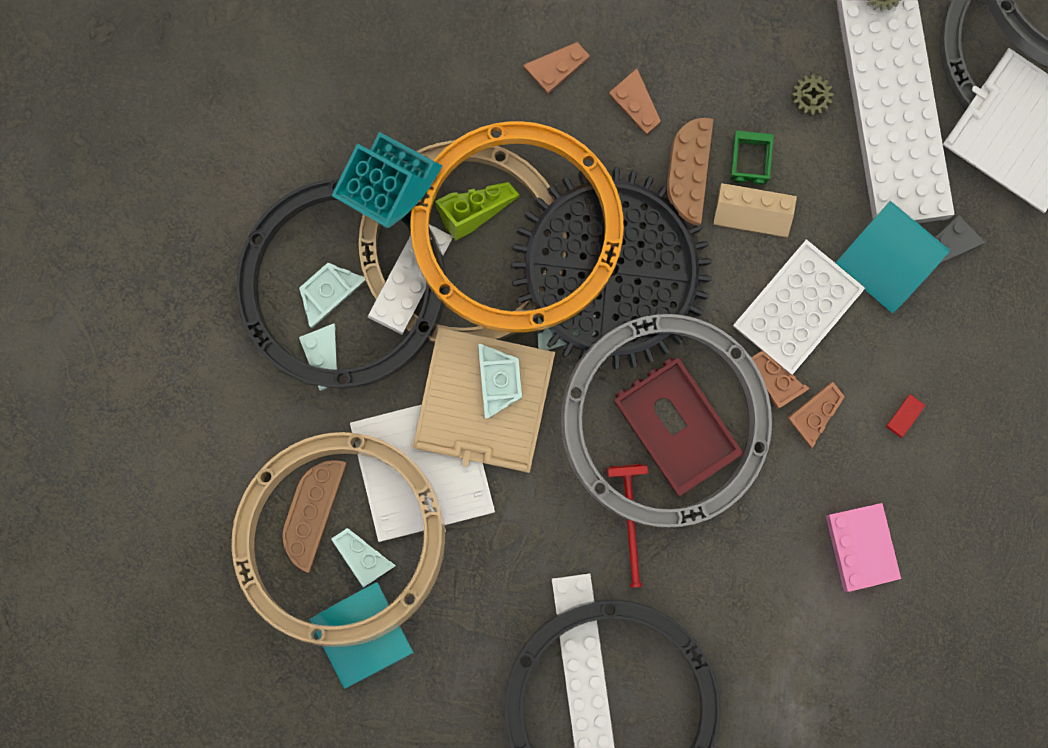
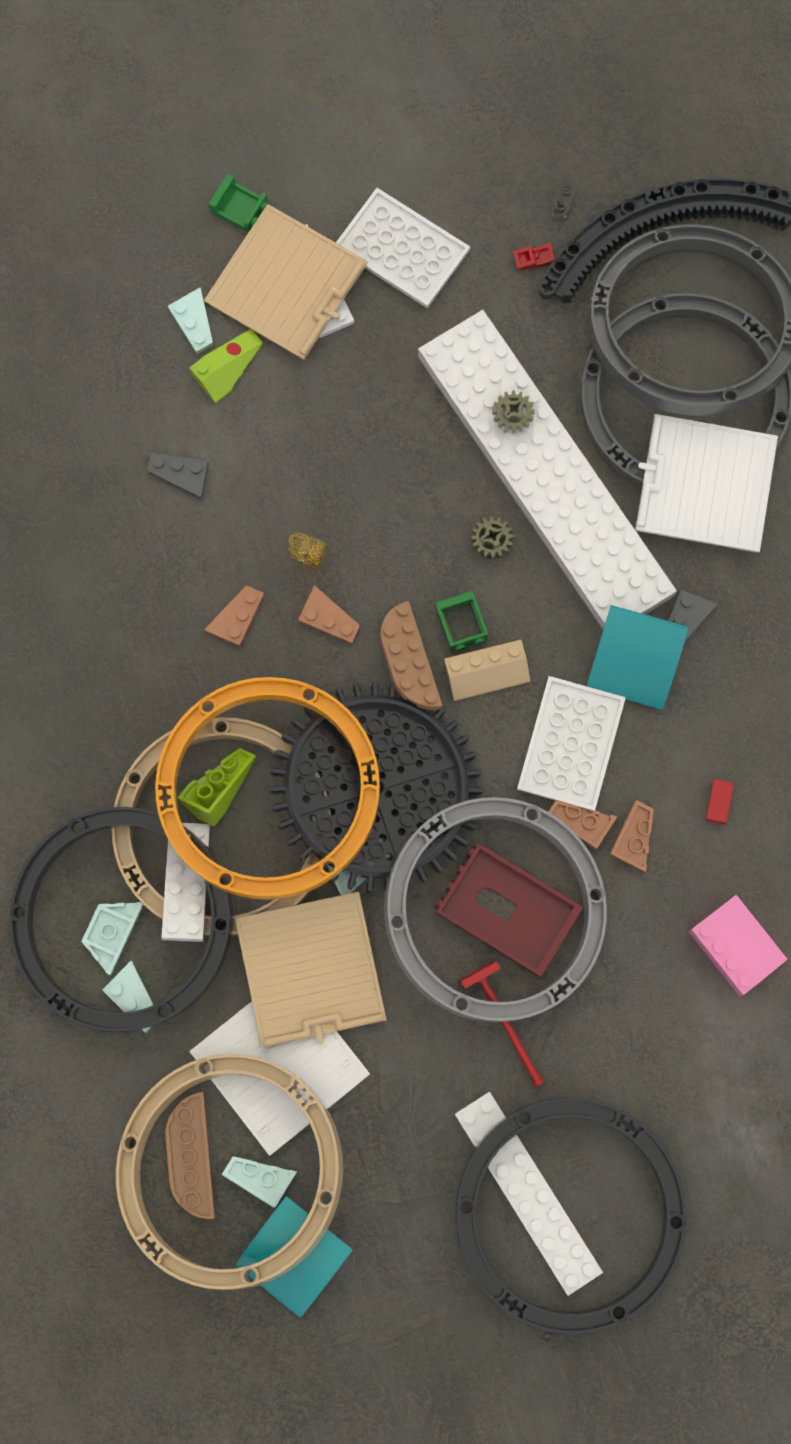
camera: 25 degrees left, 5 degrees down
(385, 180) = (121, 799): teal slope -> none
(499, 379) = (316, 942): light aqua wing -> none
(646, 34) = (309, 549): none -> clear yellow piece

